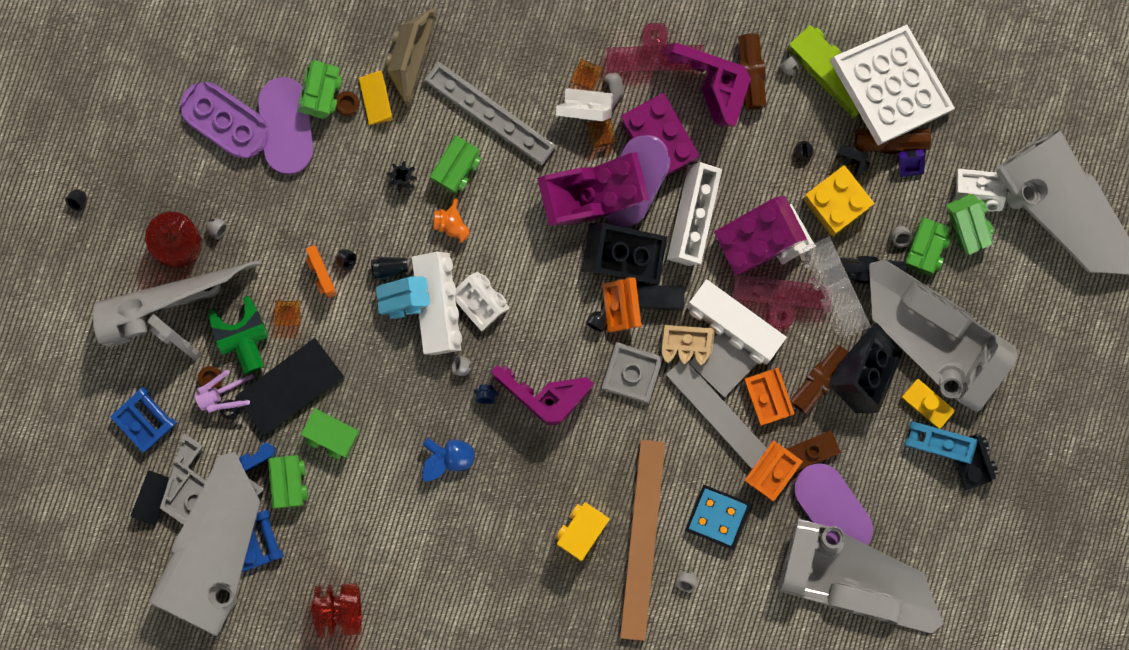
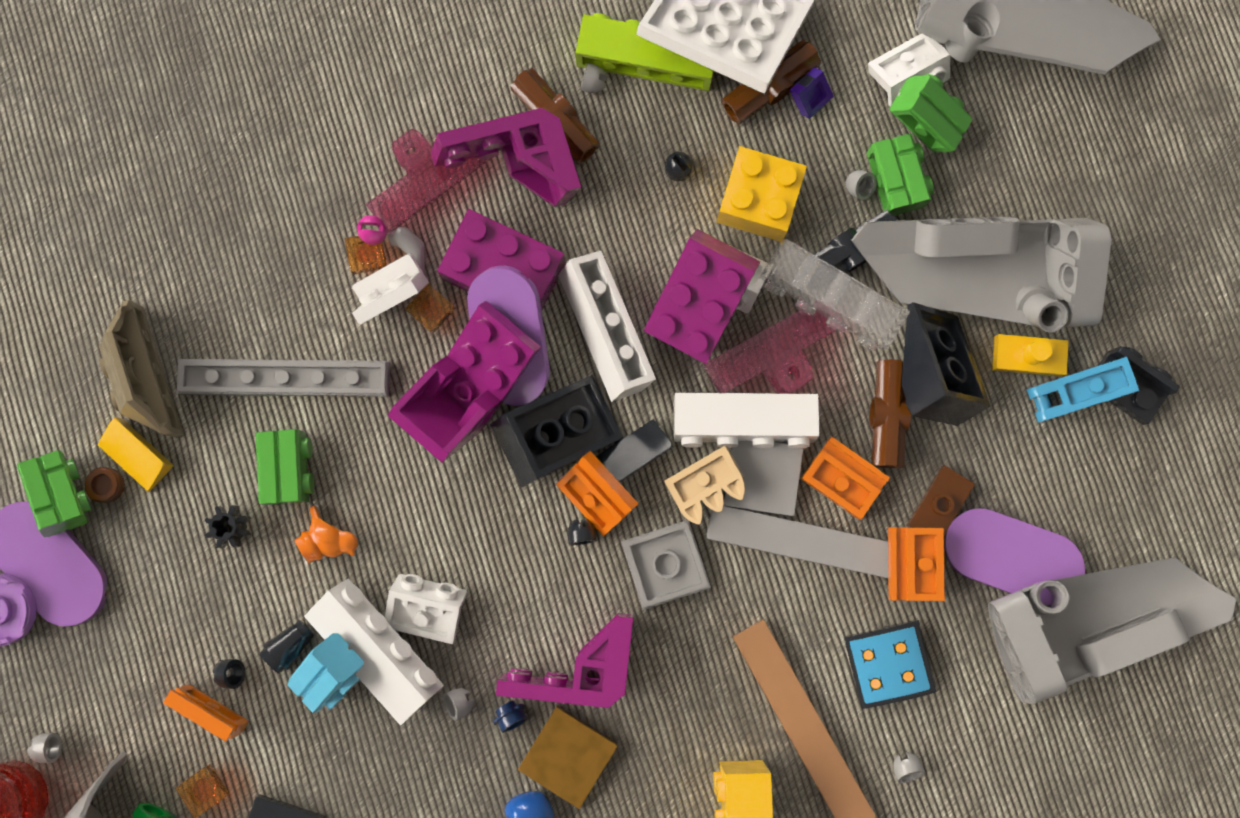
camera: 30 degrees left, 0 degrees up
(501, 439) = (568, 757): none -> pearl gold tile
(596, 68) = (371, 237): none -> dark pink hinge
(851, 156) = (741, 131): black bracket -> none

